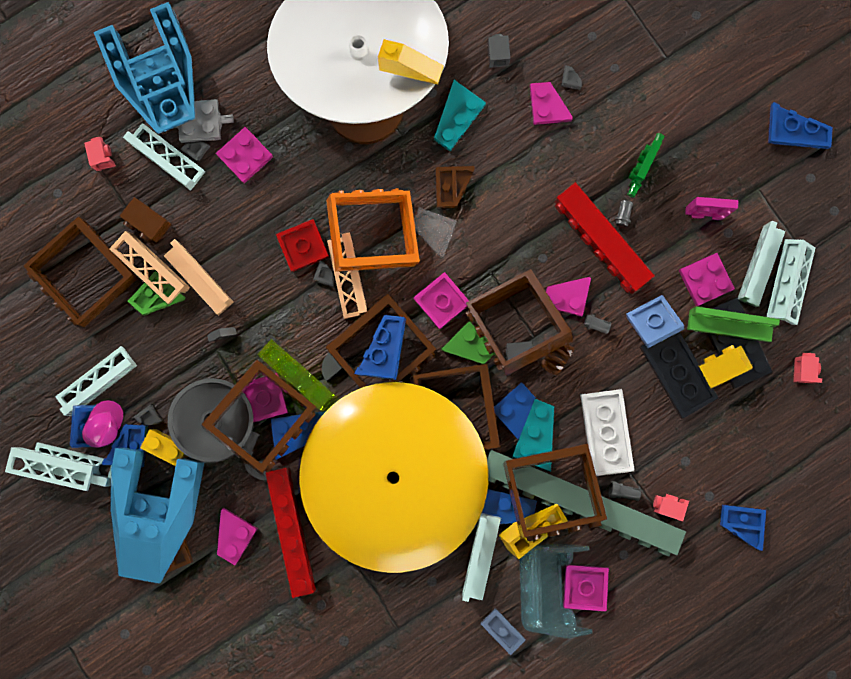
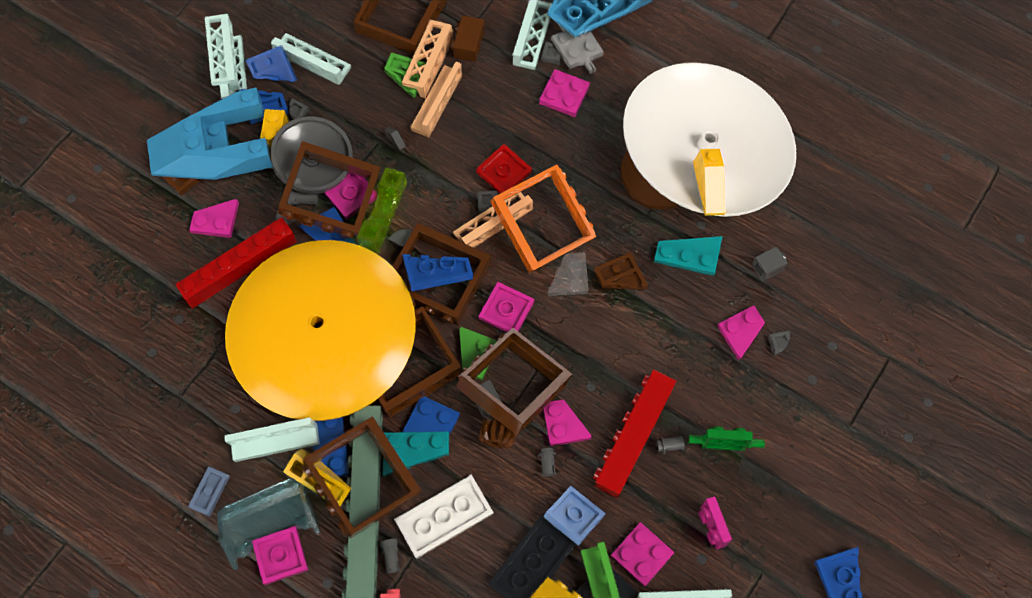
camera: 65 degrees right, 15 degrees down
(103, 424) = (276, 76): dark pink piece -> none

